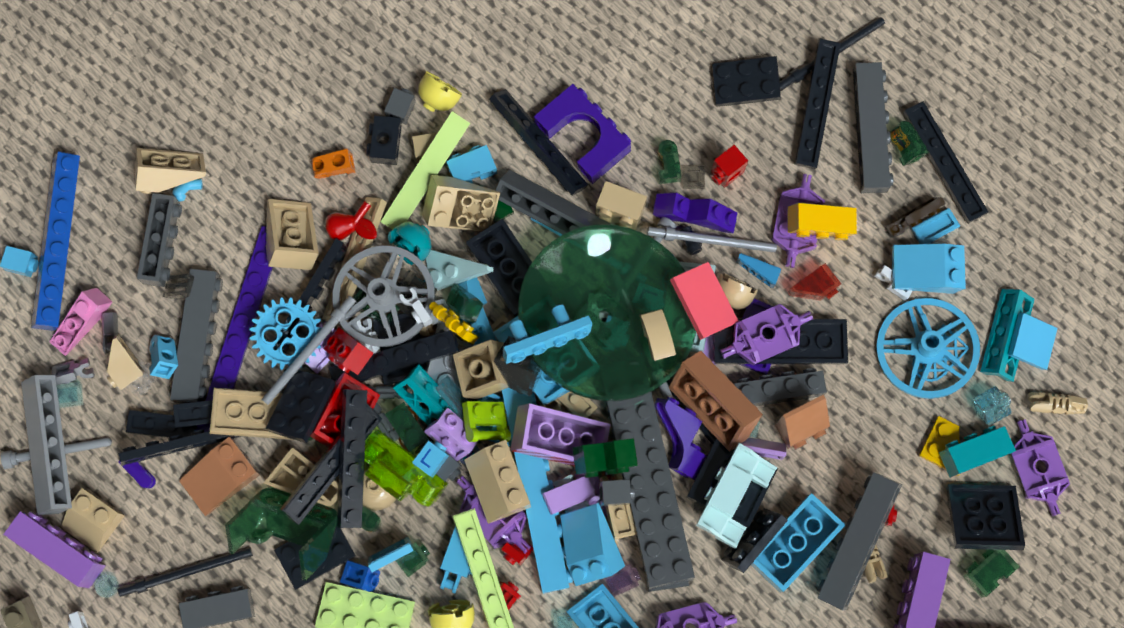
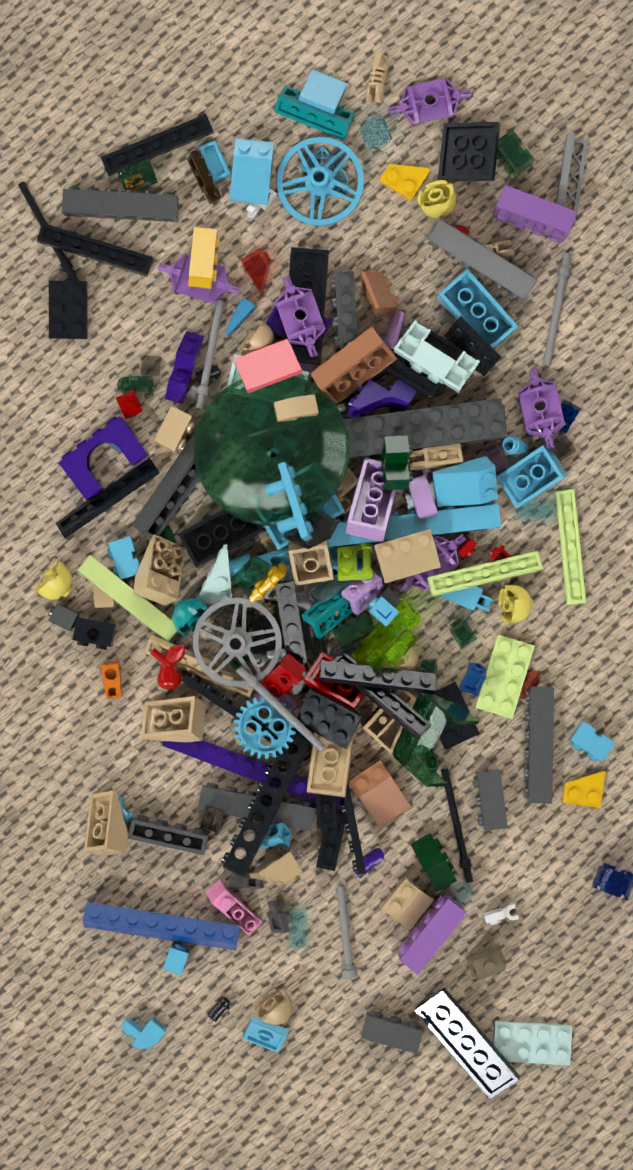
camera: 85 degrees left, 10 degrees up
(46, 444) = (342, 938): light grey brick -> none
(122, 318) = (241, 866): none -> black brick
(139, 545) = (435, 864): none -> dark green brick
(390, 554) = (458, 651): medium azure tile -> none
(419, 312) = (258, 610): white plate -> none
(616, 492) = (426, 456): dark grey brick -> none
(640, 601) = (513, 445): none -> medium azure cone
(645, 155) = (129, 404): none -> red bracket
(728, 166) = (147, 333): red brick -> none
(923, 484) = (437, 199): none -> light yellow cylinder
(976, 450) = (412, 151): teal brick -> none

